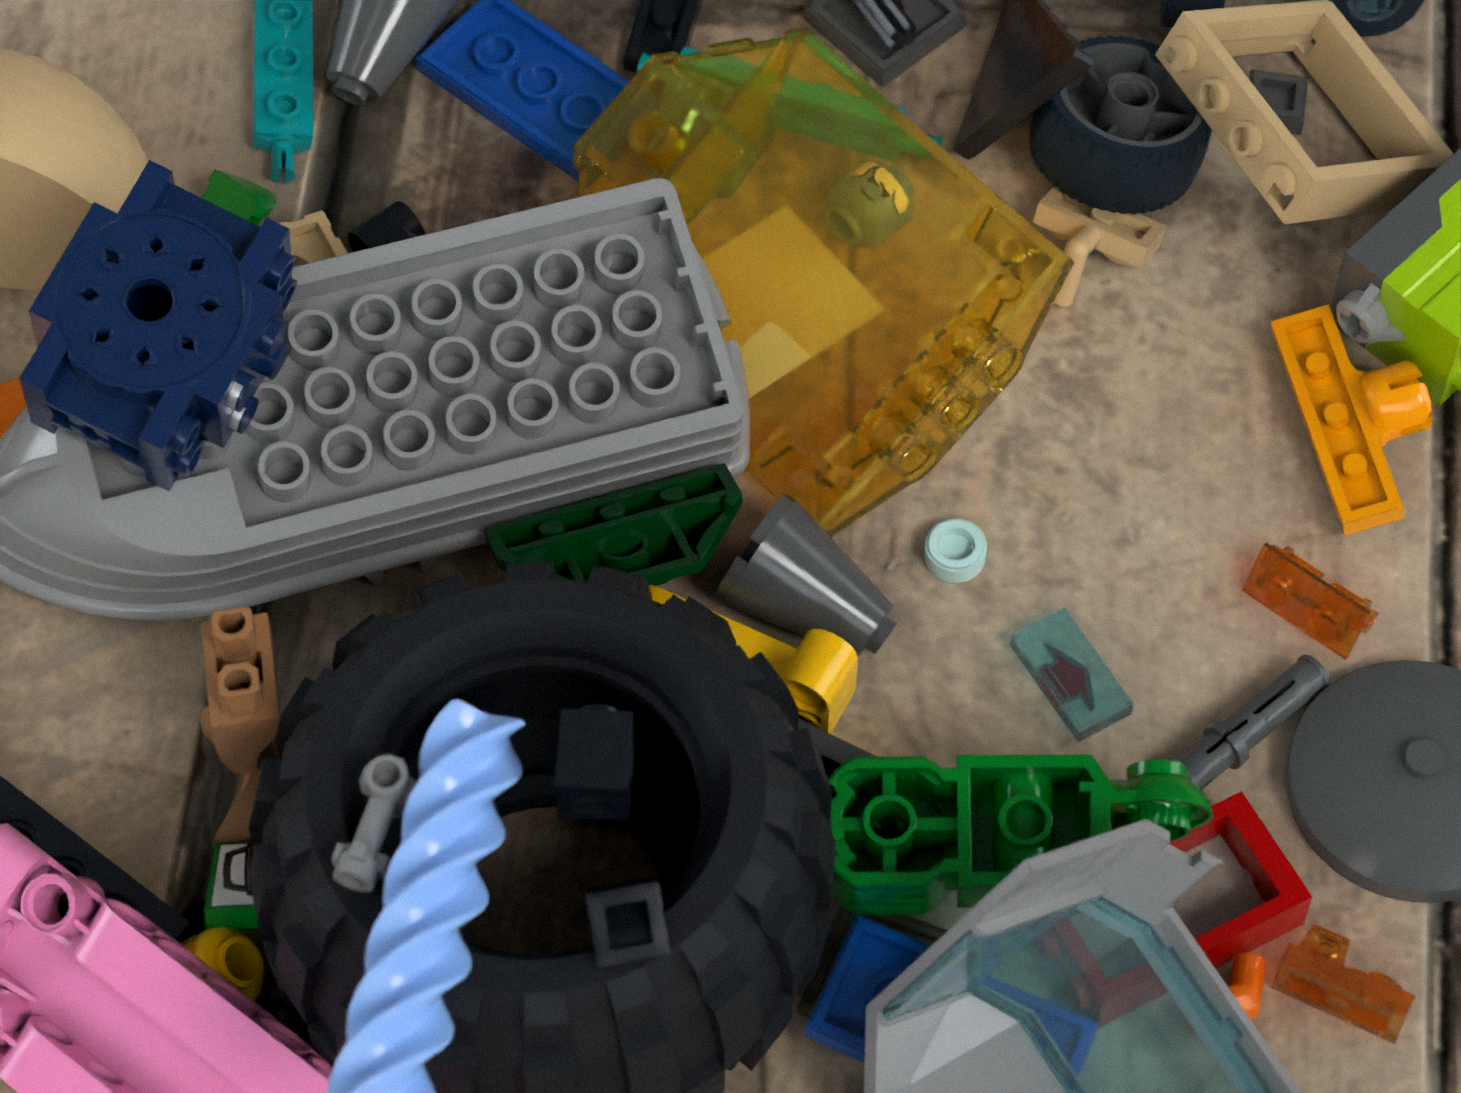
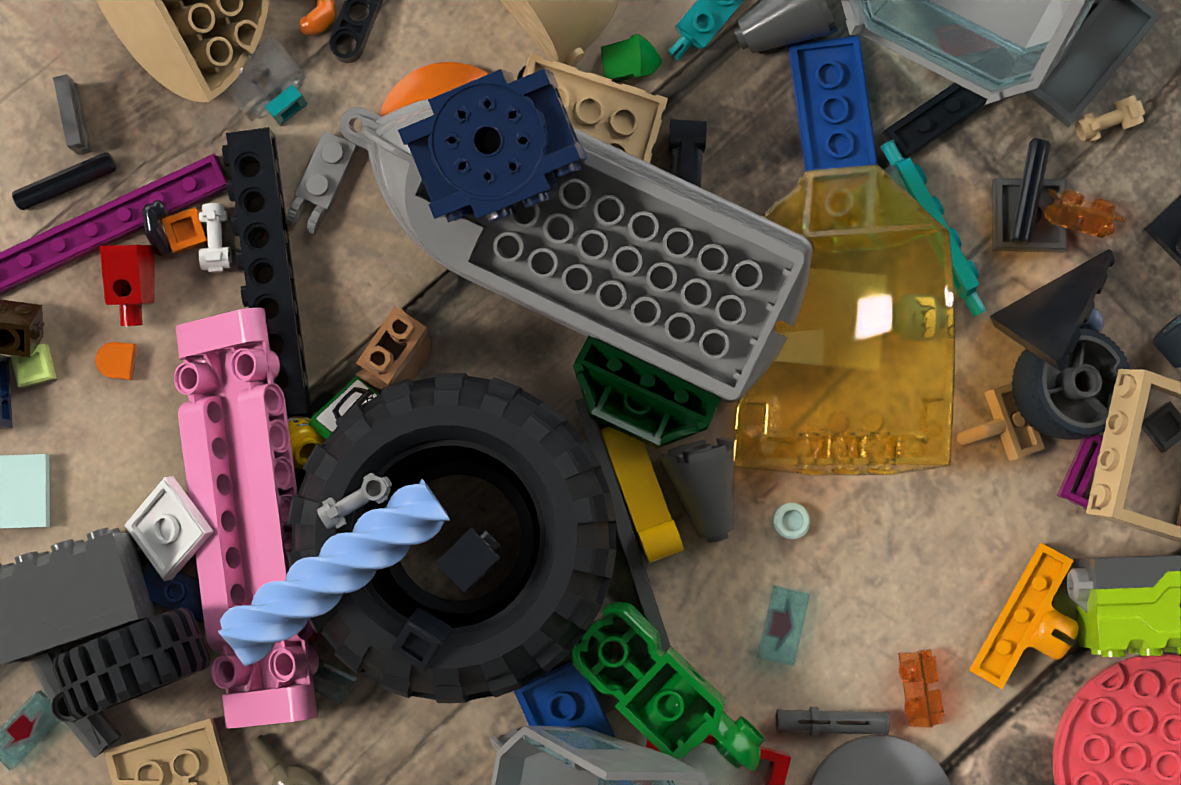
camera: 45 degrees right, 25 degrees up
(1257, 250) = (1064, 491): none -> magenta tile

